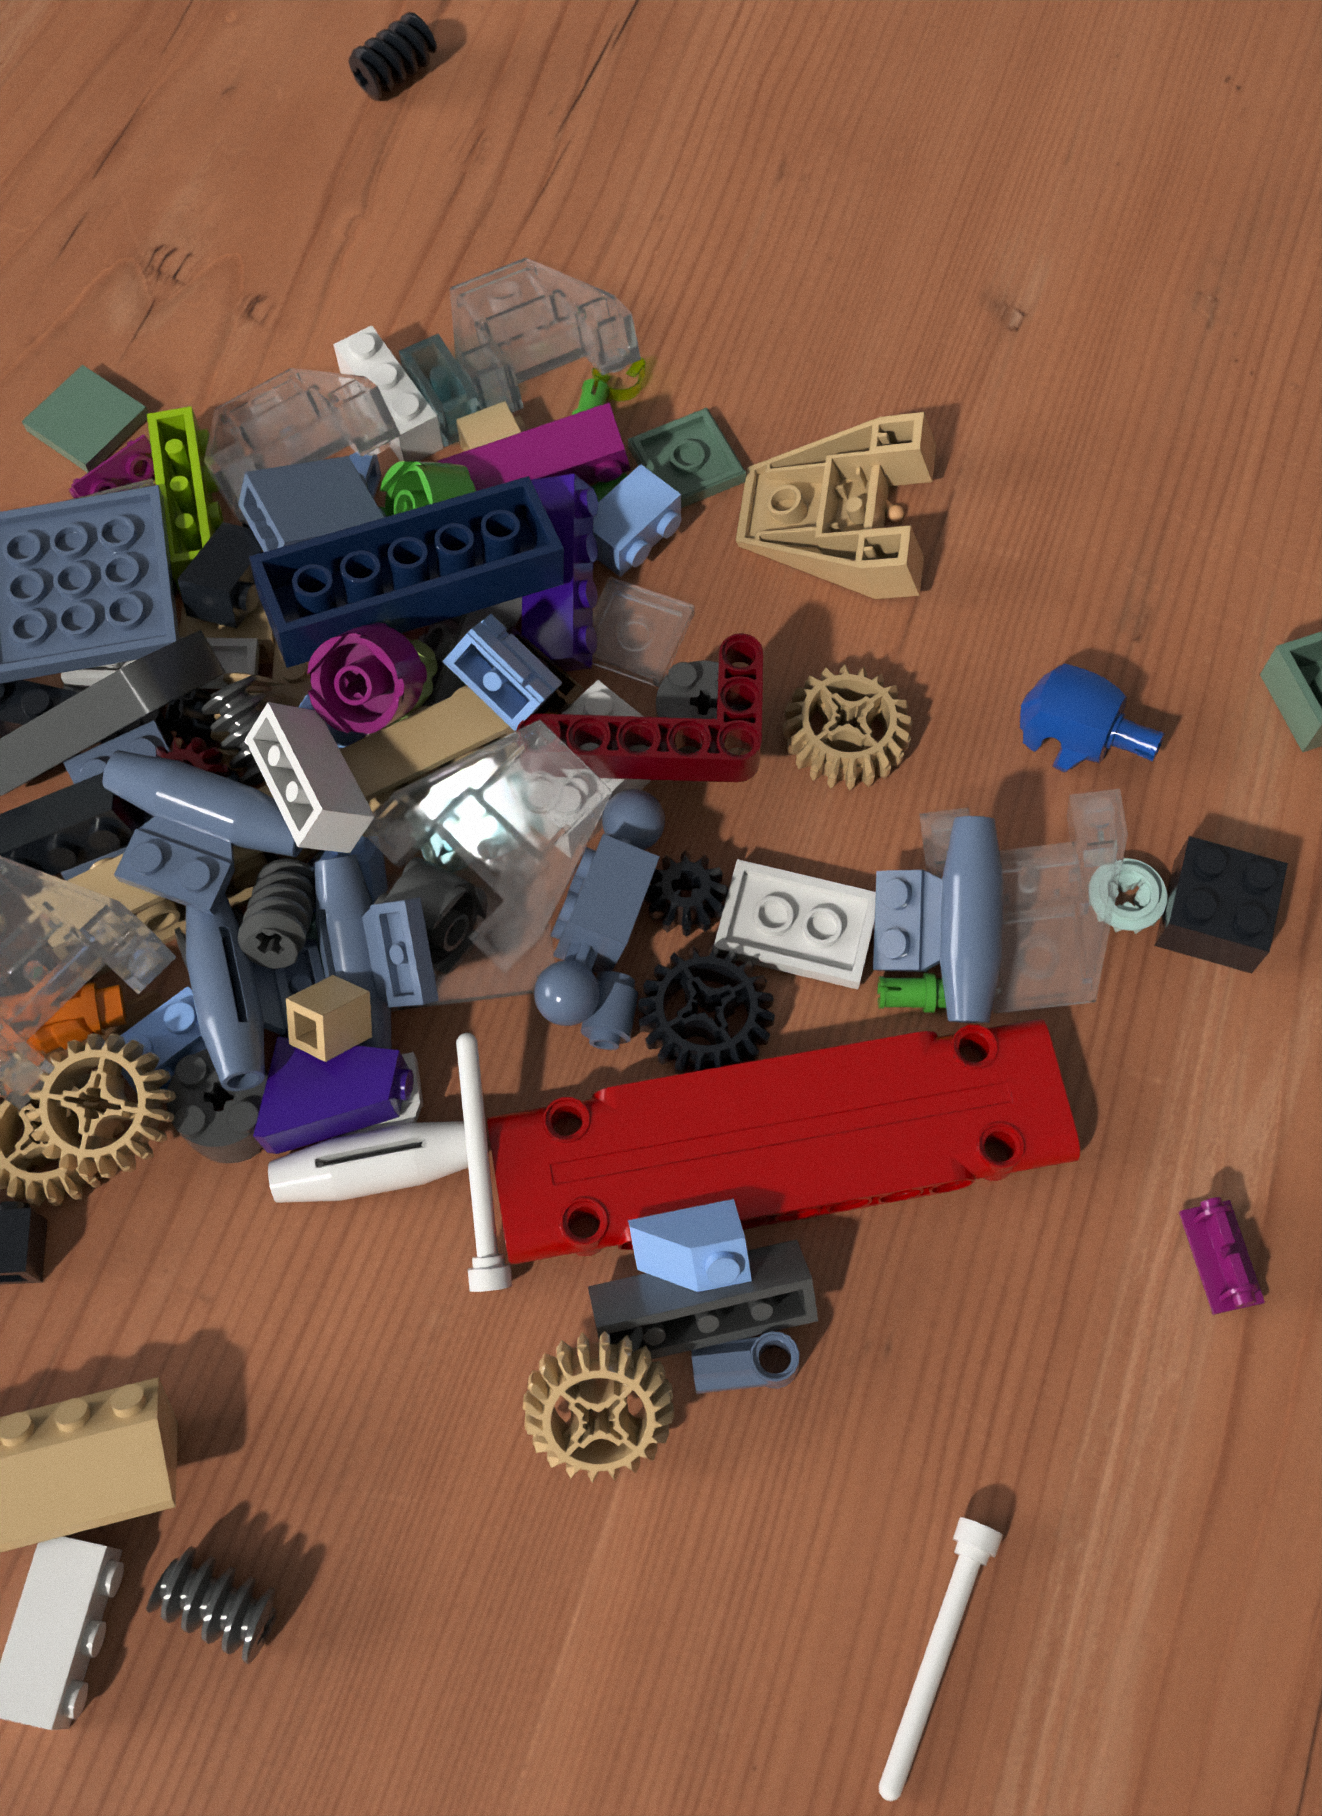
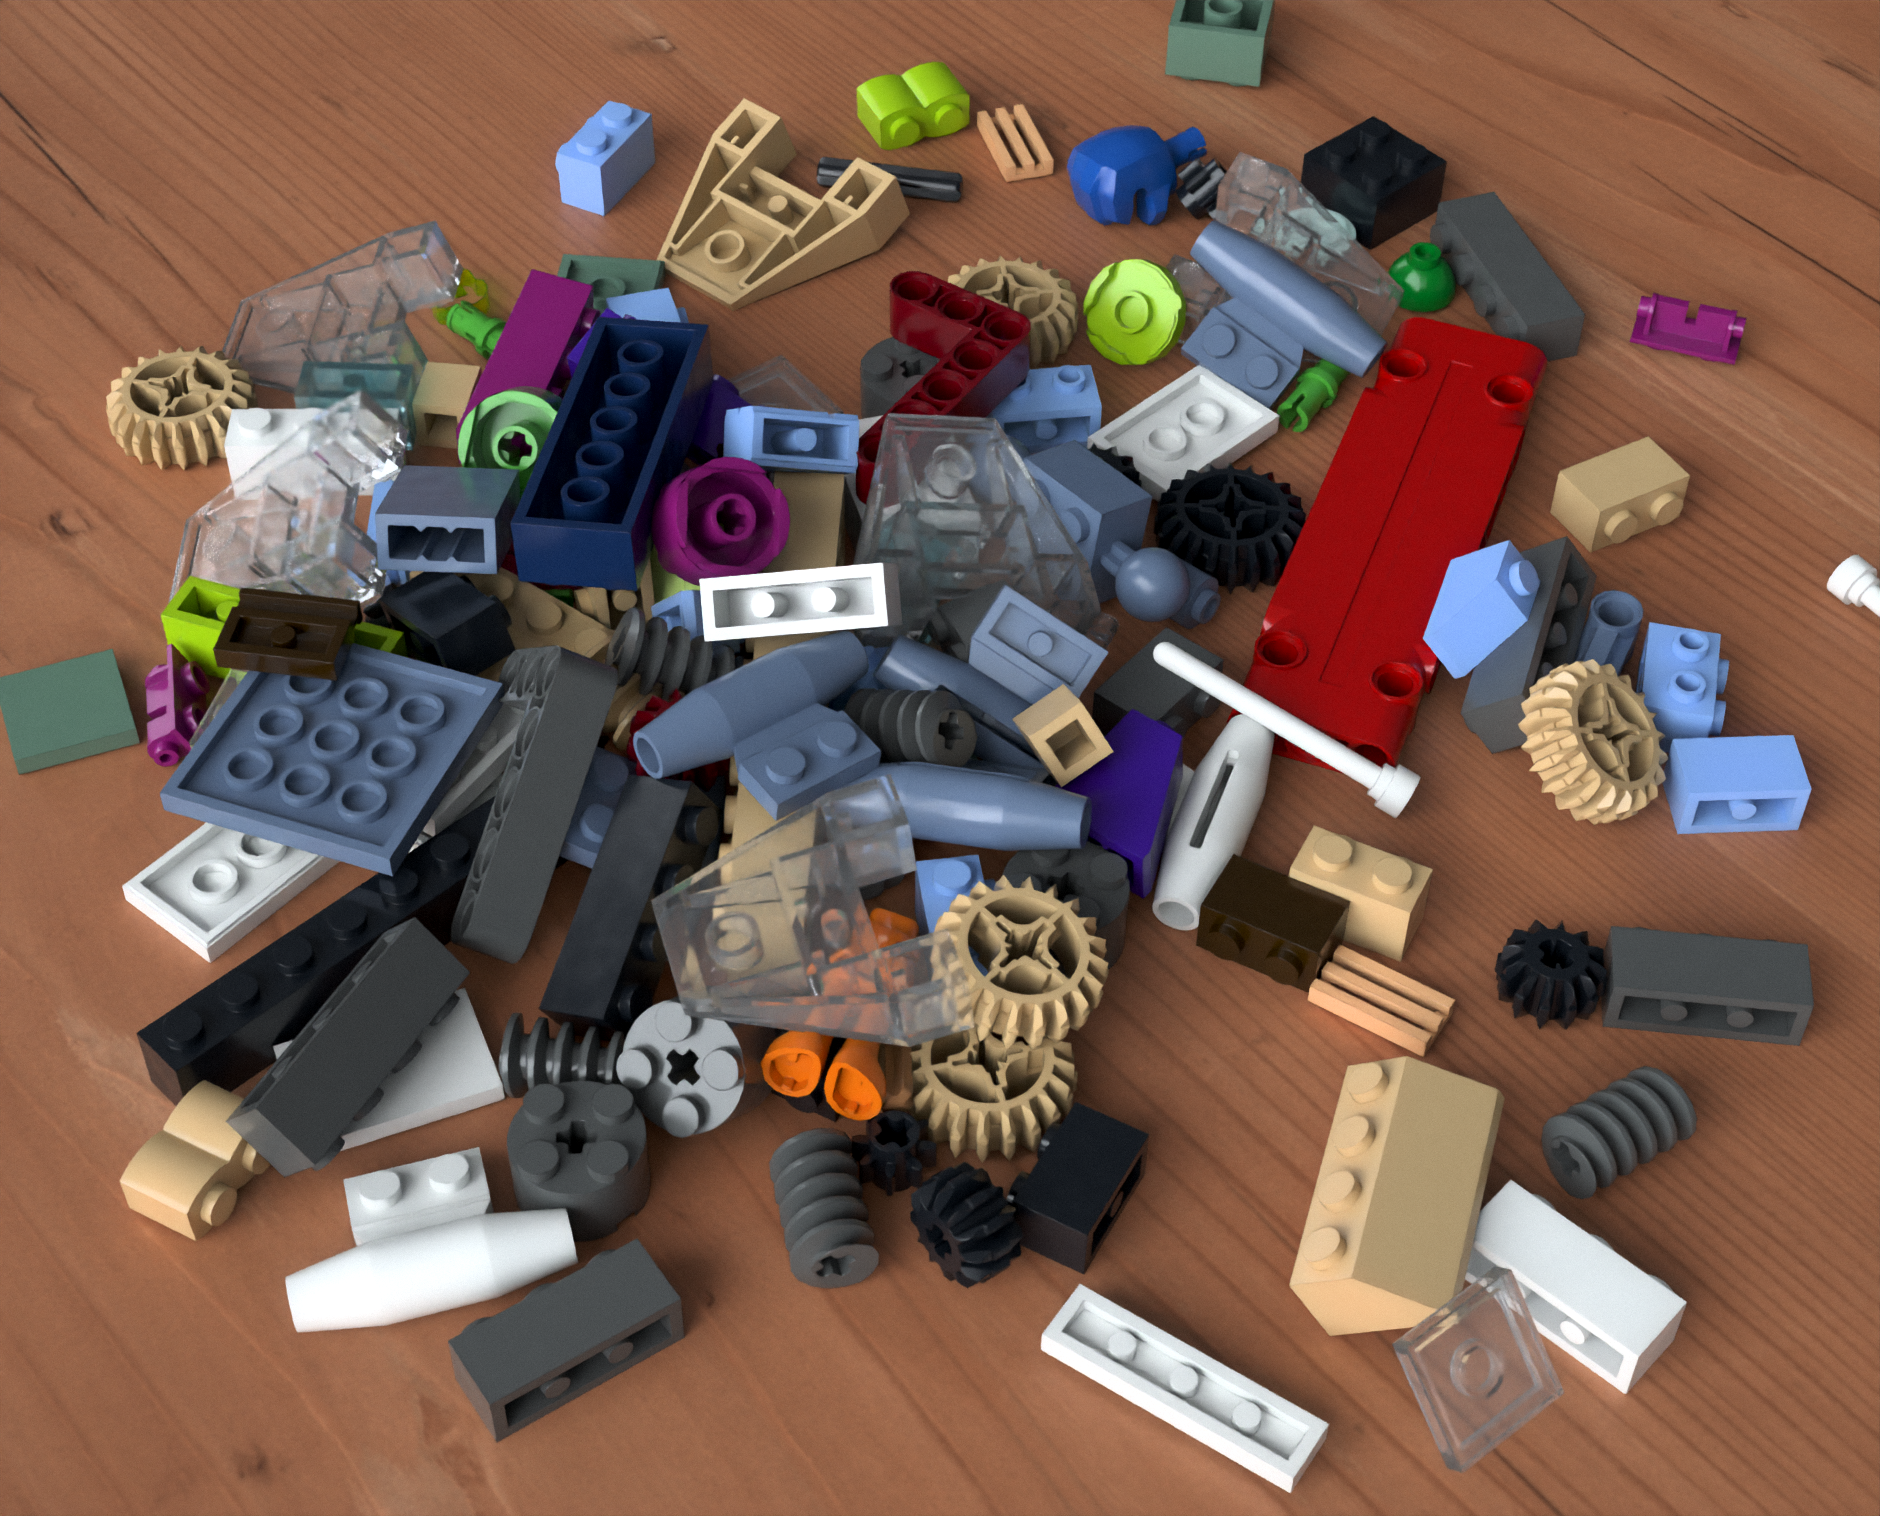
camera: 60 degrees left, 20 degrees down
(131, 495) = (288, 634): none -> dark brown plate
(280, 1320) = (1386, 993): none -> light nougat tile
(294, 1254) = (1271, 923): none -> dark brown brick
(356, 1299) = (1383, 889): none -> tan brick
(363, 1500) = (1551, 974): none -> black gear
(386, 290) = (178, 406): none -> tan gear
(411, 1608) = (1707, 985): none -> dark grey brick
(506, 1056) = (1155, 690): none -> dark grey brick
(652, 1538) = (1736, 784): none -> light blue brick
(735, 1445) = (1681, 680): none -> light blue brick
(753, 815) = (1052, 408): none -> light blue brick
(826, 367) = (606, 158): none -> light blue brick
(897, 815) = (1134, 312): none -> lime tile
(951, 1295) = (1619, 494): none -> tan brick
(960, 559) = (913, 181): none -> black axle
(1054, 523) = (913, 105): none -> lime brick
(1097, 592) = (1030, 135): none -> light nougat tile
(1112, 774) = (1201, 187): none -> black gear
(1128, 1007) = (1424, 277): none -> green brick
(1174, 1073) = (1507, 275): none -> dark grey brick

